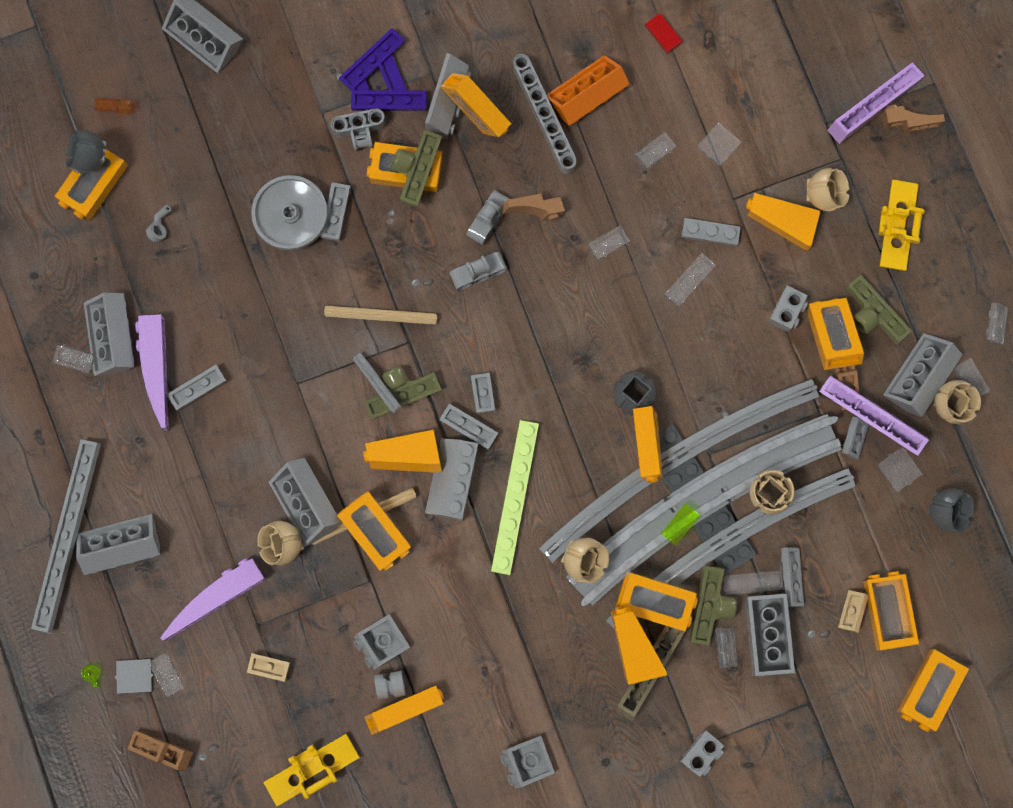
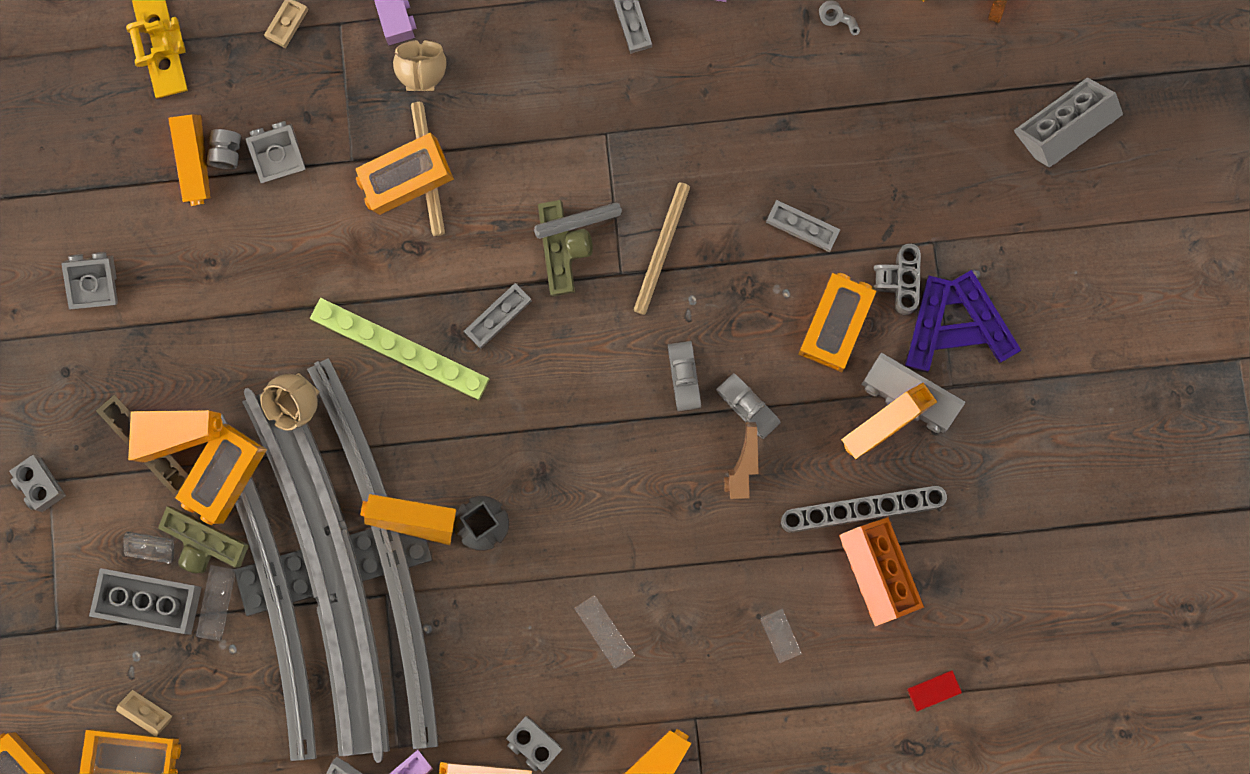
camera: 110 degrees right, 0 degrees up
(289, 212) = (813, 169): light grey dish -> none
(304, 501) = (462, 105): light grey slope -> none
(405, 453) = (485, 236): light orange slope -> none
(416, 166) = (829, 330): olive plate -> none
(451, 486) = (440, 280): light grey slope -> none
(483, 393) = (533, 343): light grey plate -> none
(608, 243) = (677, 544): clear plate -> none
(680, 524) = (303, 529): clear neon green tile -> none
(710, 232) = (659, 676): light grey plate -> none
(719, 144) = (770, 720): clear piece -> none
(781, 482) = (292, 660): tan piece -> none
(792, 576) = (206, 651): light grey plate -> none

